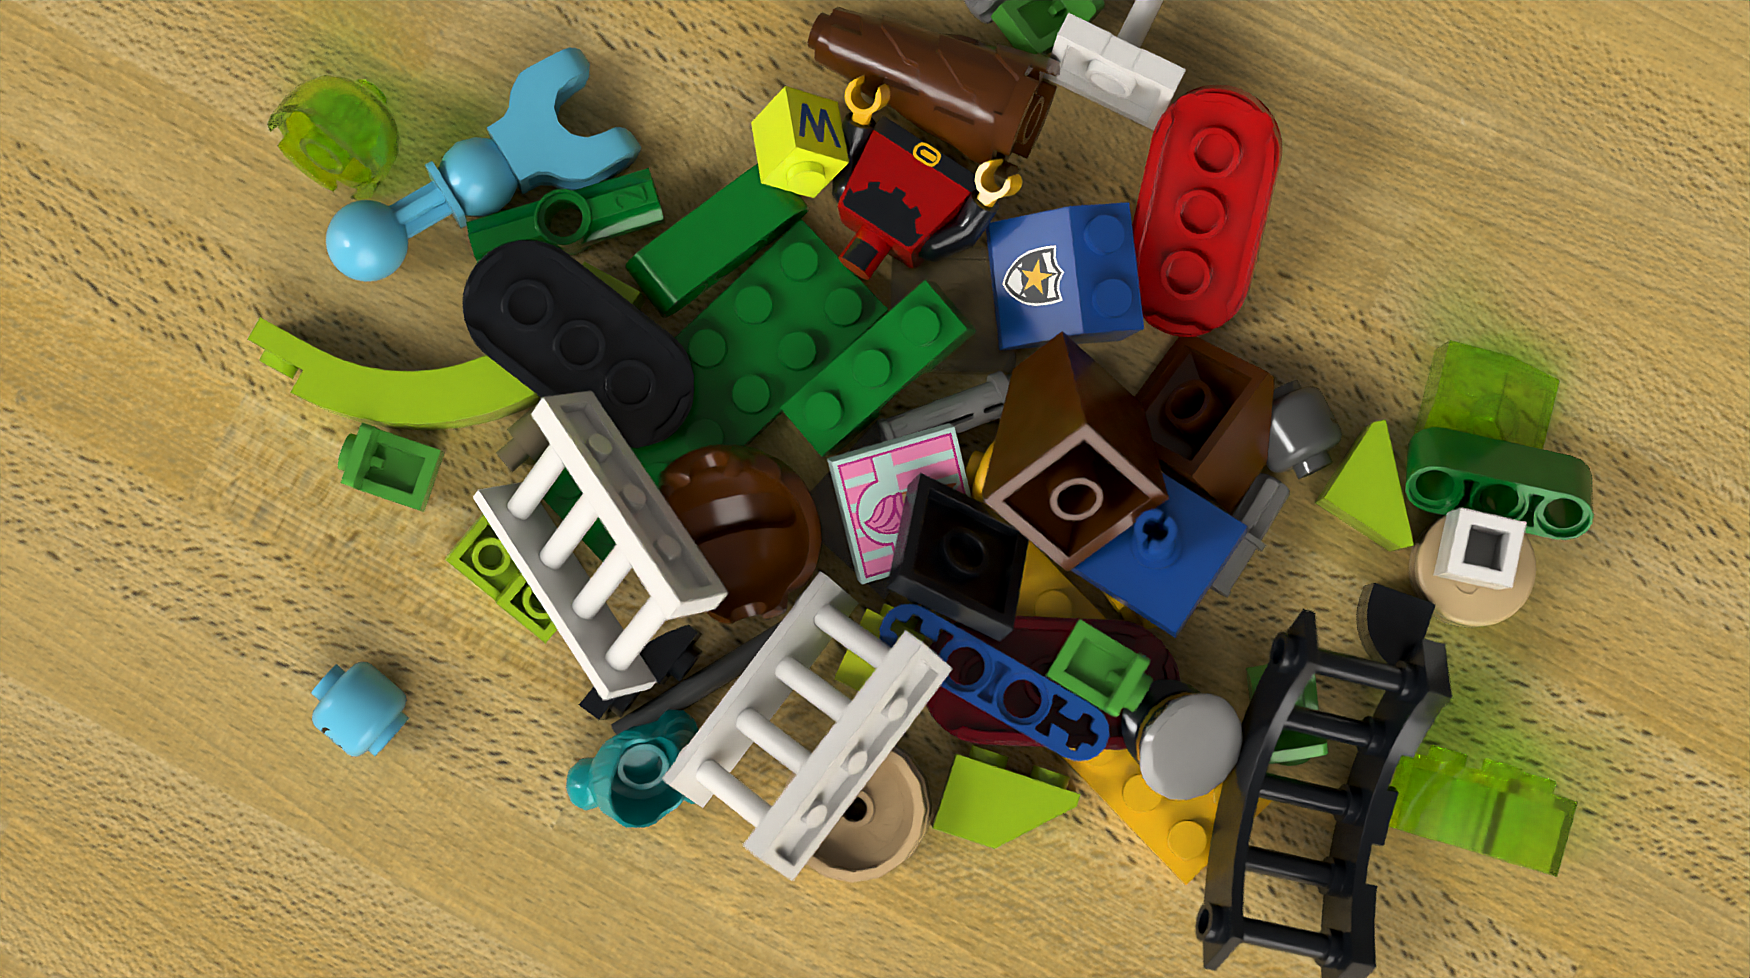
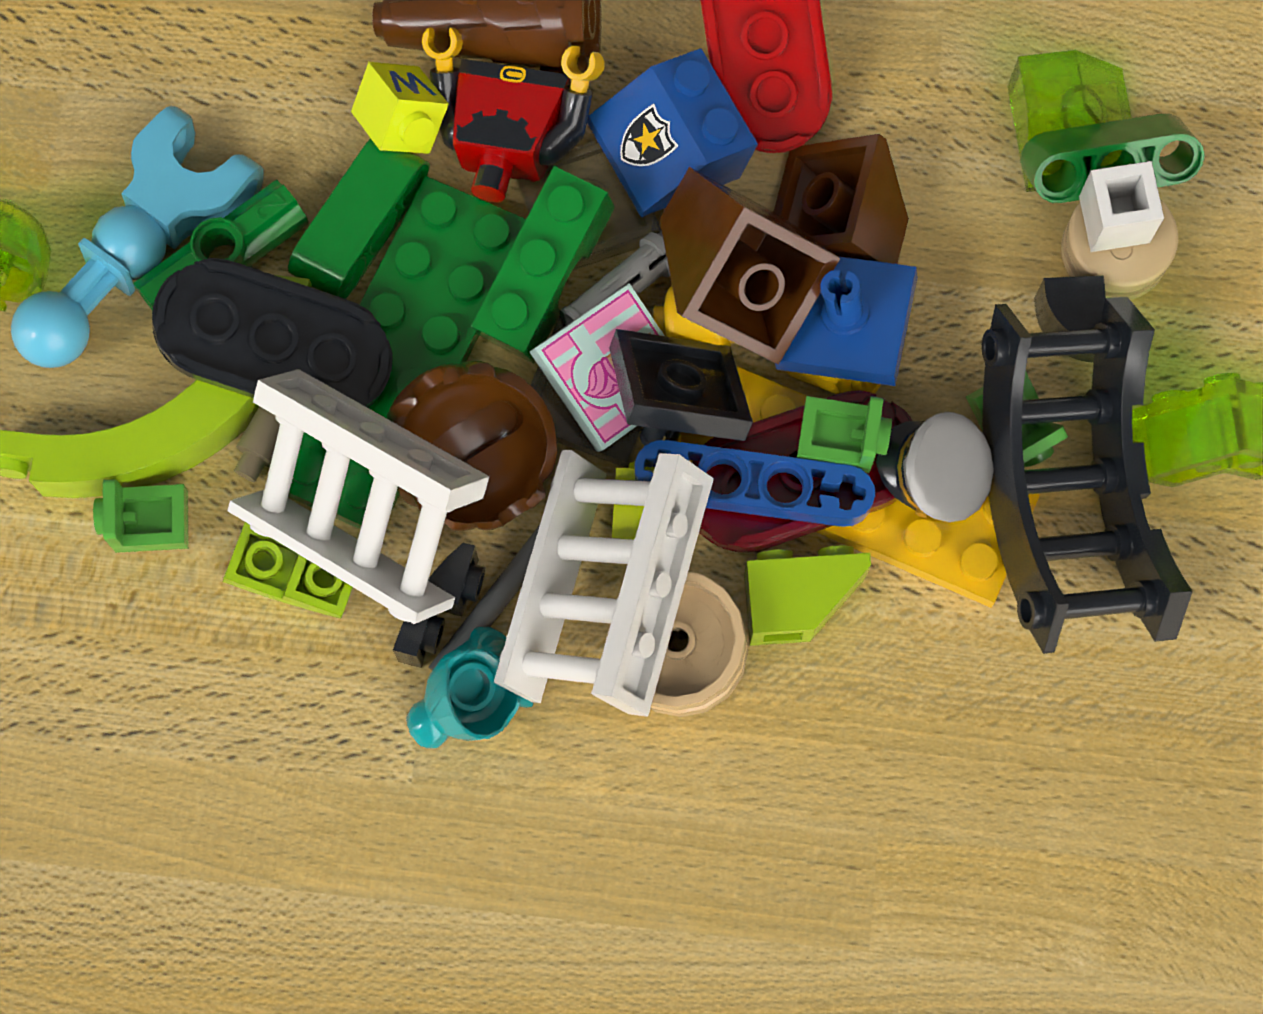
camera: 25 degrees left, 10 degrees down
(358, 708) = (194, 739): medium azure head -> none
(1258, 512) = (920, 251): light grey axle -> none
(1301, 430) = (927, 185): dark grey head -> none
(1368, 490) = (1006, 214): lime slope -> none

